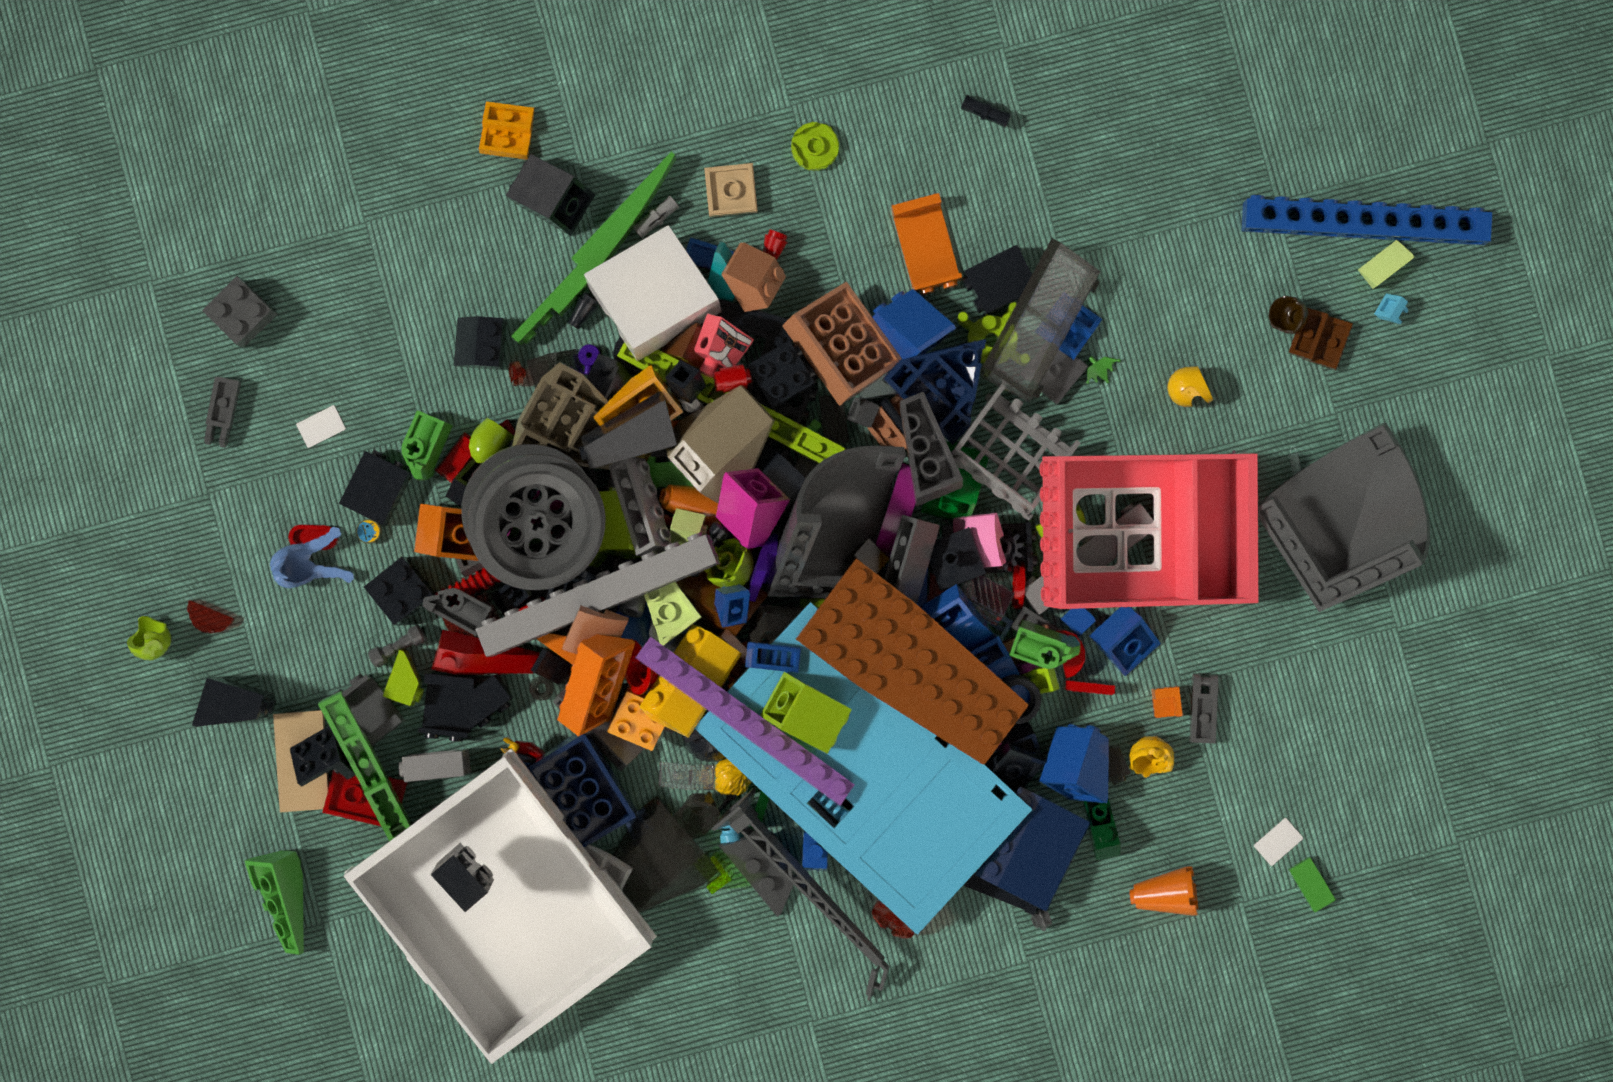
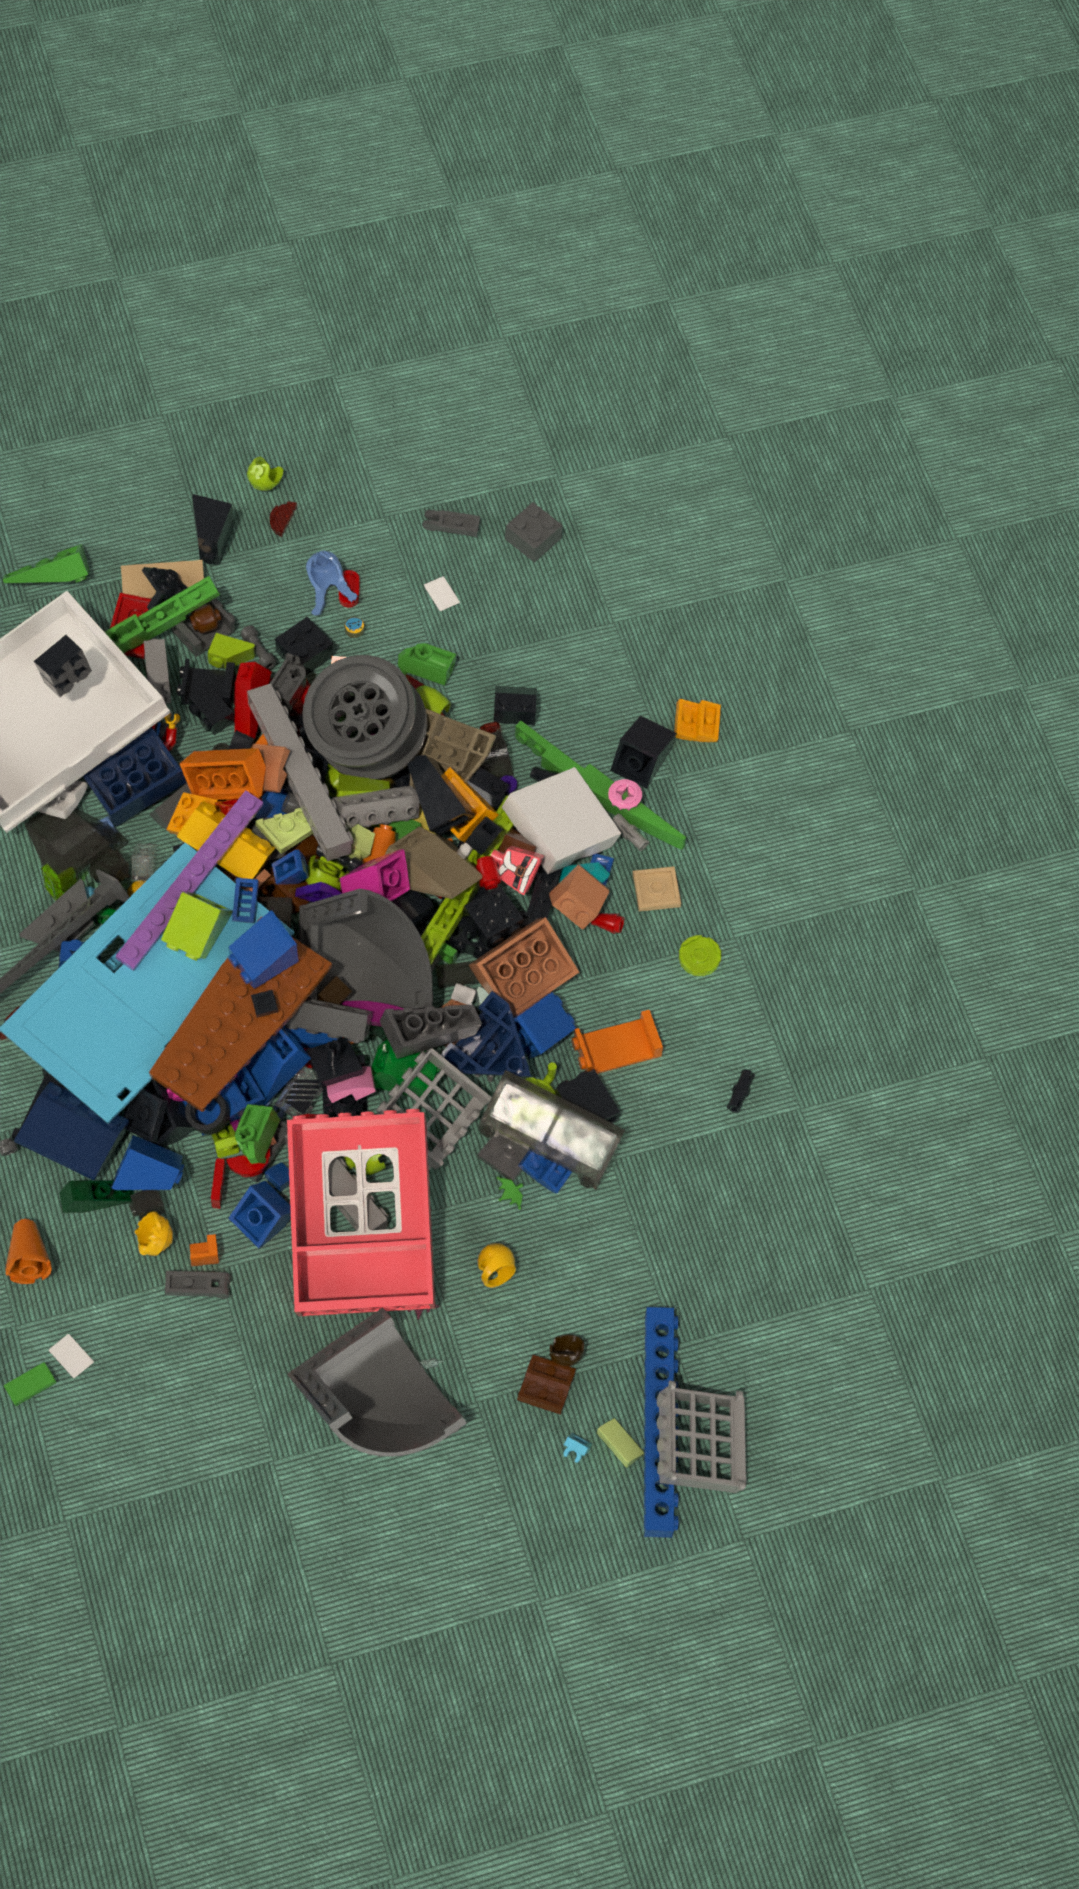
camera: 80 degrees right, 25 degrees down
(363, 708) = (205, 619): none -> reddish brown head
(376, 487) = (390, 628): black brick -> none
(611, 208) = (617, 790): none -> bright pink gear
(853, 636) = (263, 951): none -> blue slope
(909, 635) = (264, 1003): none -> black tile
(1396, 211) = (667, 1441): none -> light grey window

